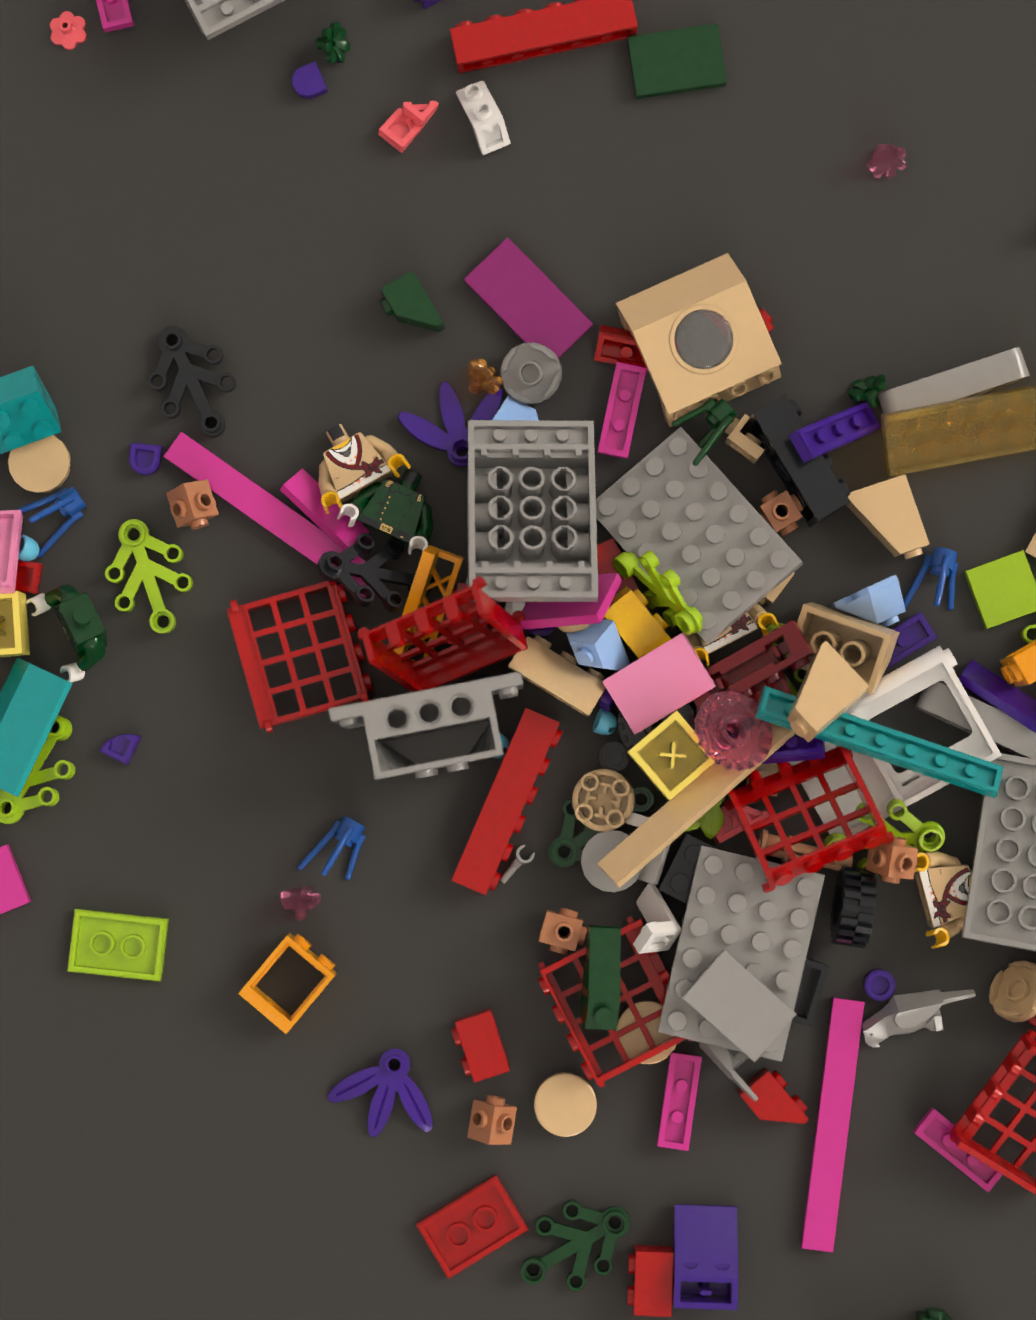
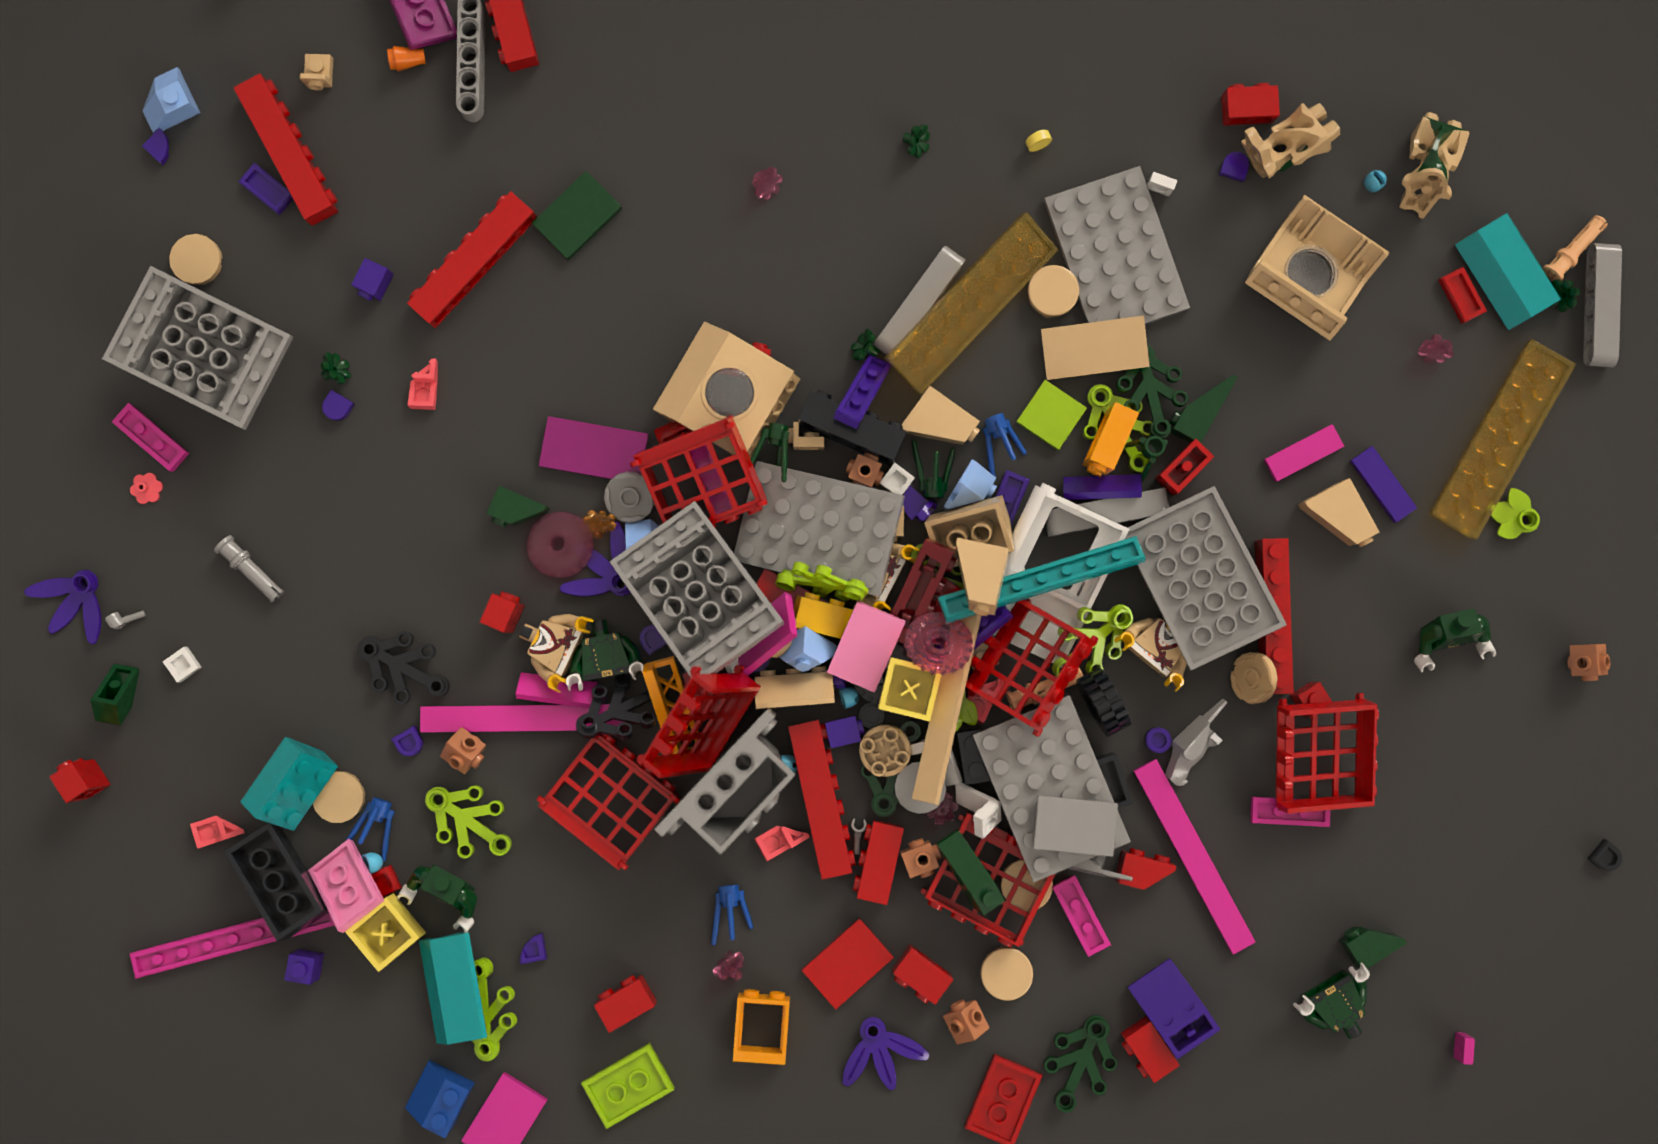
camera: 40 degrees left, 0 degrees up
(109, 166) = (241, 561): none -> light grey pin
(173, 862) = (625, 1002): none -> red brick
(328, 396) = (503, 612): none -> red brick
(416, 981) = (847, 963): none -> red tile
(432, 391) = (576, 549): none -> clear pink gear
(435, 813) = (778, 840): none -> coral slope
(453, 528) = (651, 639): none -> dark purple tile
(484, 117) = (473, 346): white bracket -> none
(518, 904) = (878, 861): none -> red brick
(577, 752) = (844, 731): none -> dark purple brick
(618, 905) = (946, 813): none -> clear pink plant
(628, 359) = (683, 445): none -> red window
(805, 543) = (896, 480): none -> white tile
(805, 578) = (913, 502): none -> dark purple tile
(812, 595) = (926, 511): none -> dark purple tile
(837, 576) = (934, 486): none -> dark green plant
(893, 860) = (1108, 652): nougat brick -> none

